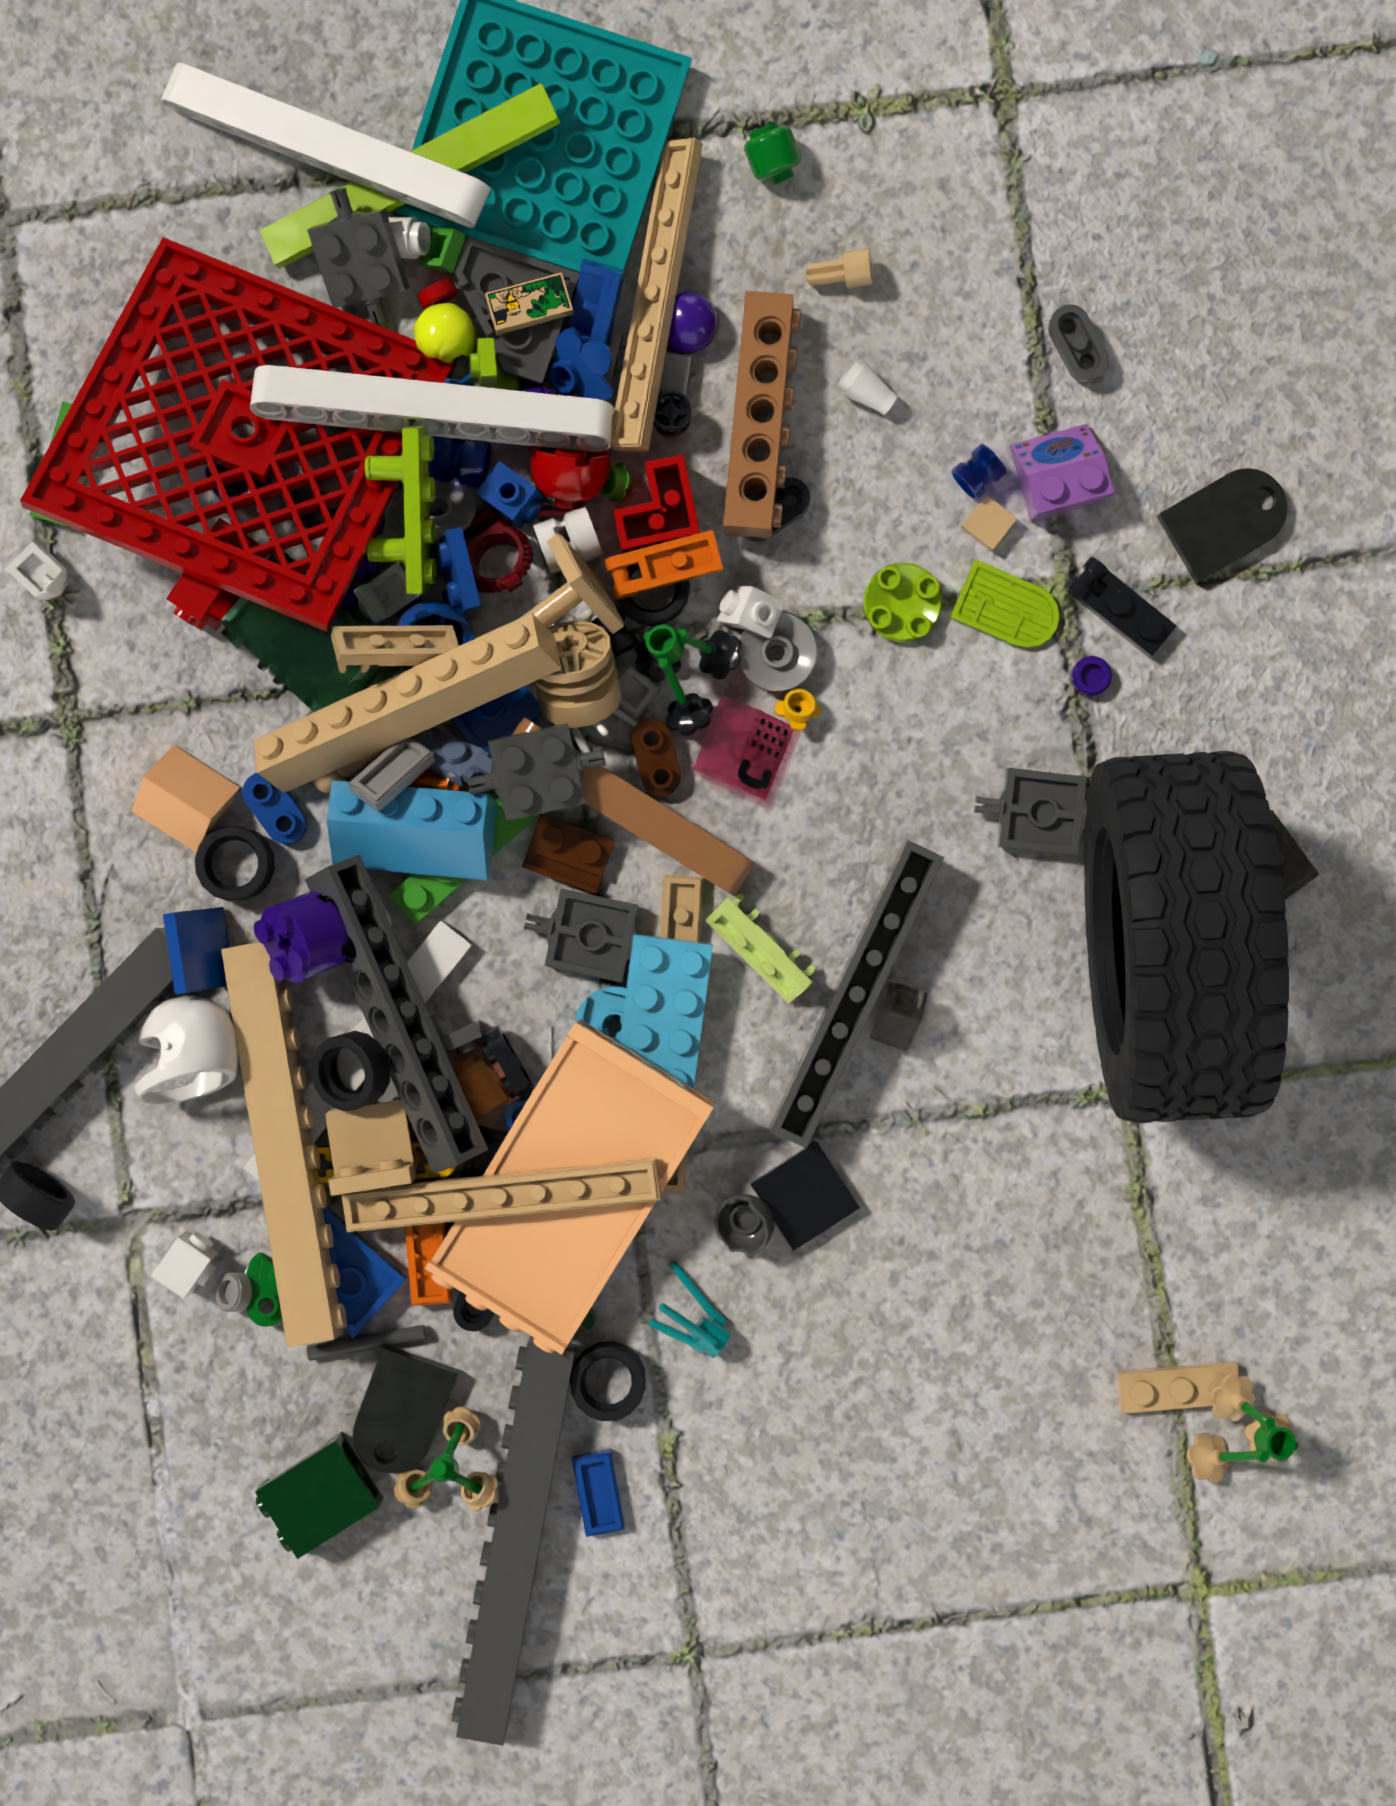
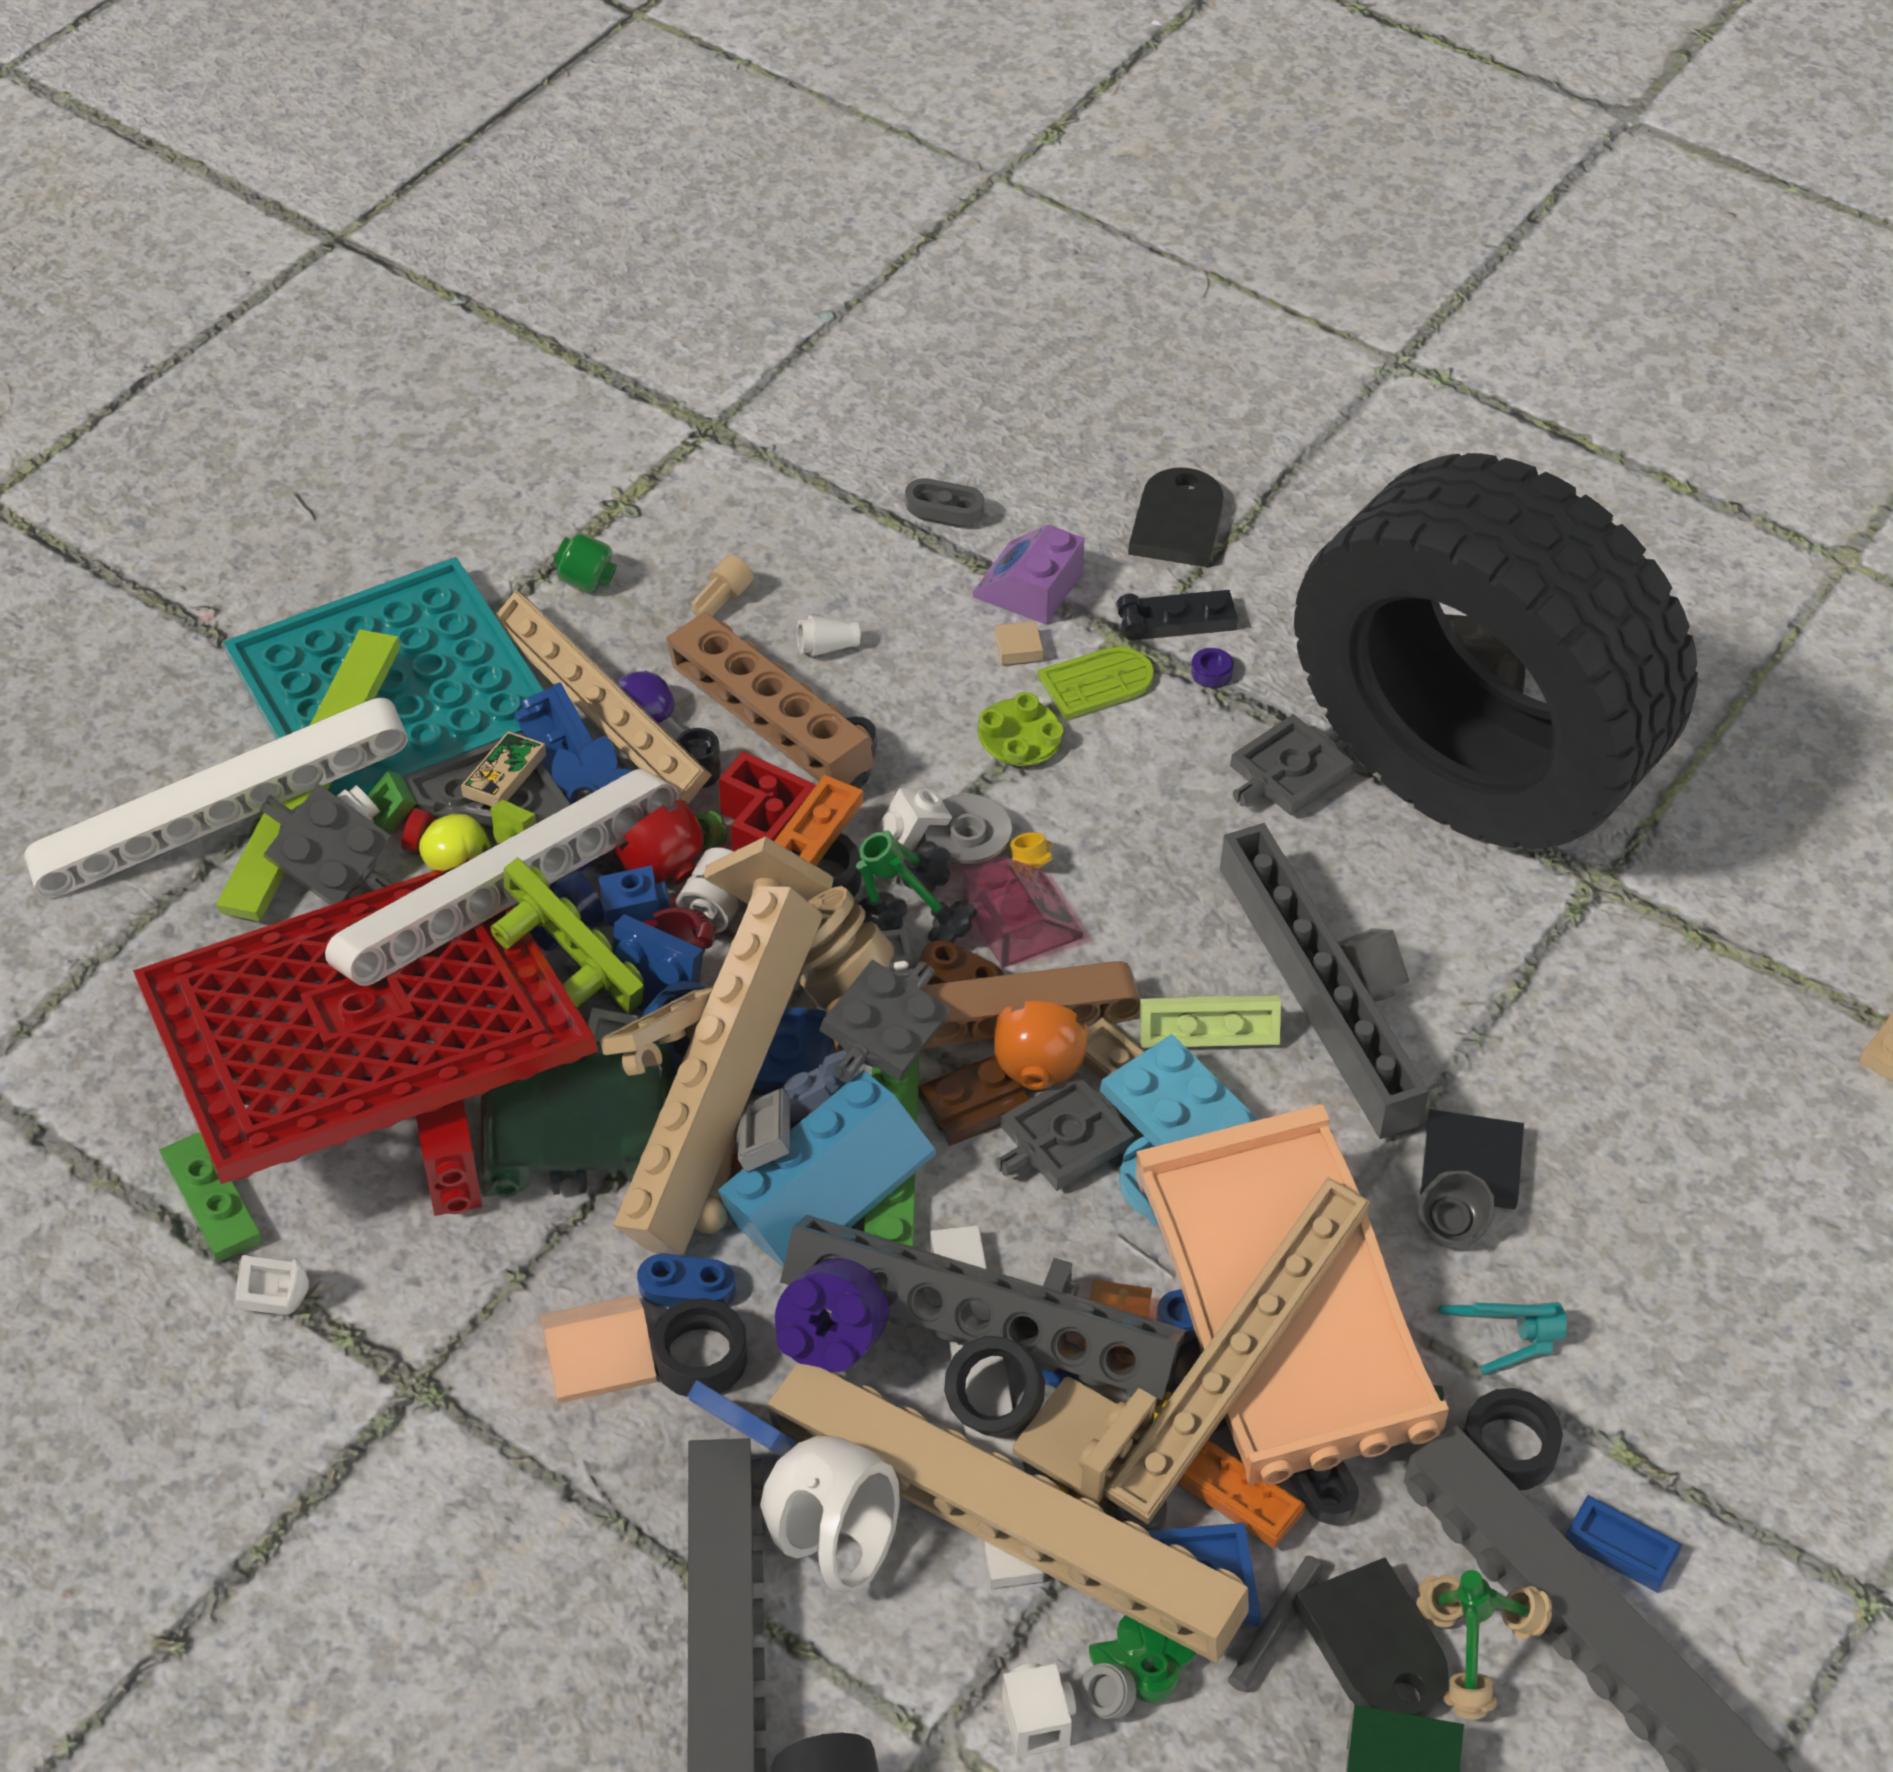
camera: 45 degrees left, 40 degrees down
(499, 1050) = (1116, 1268): black plate -> none
(624, 872) = (1040, 1044): none -> orange cylinder
(978, 471) = (972, 615): clear blue wheel -> none

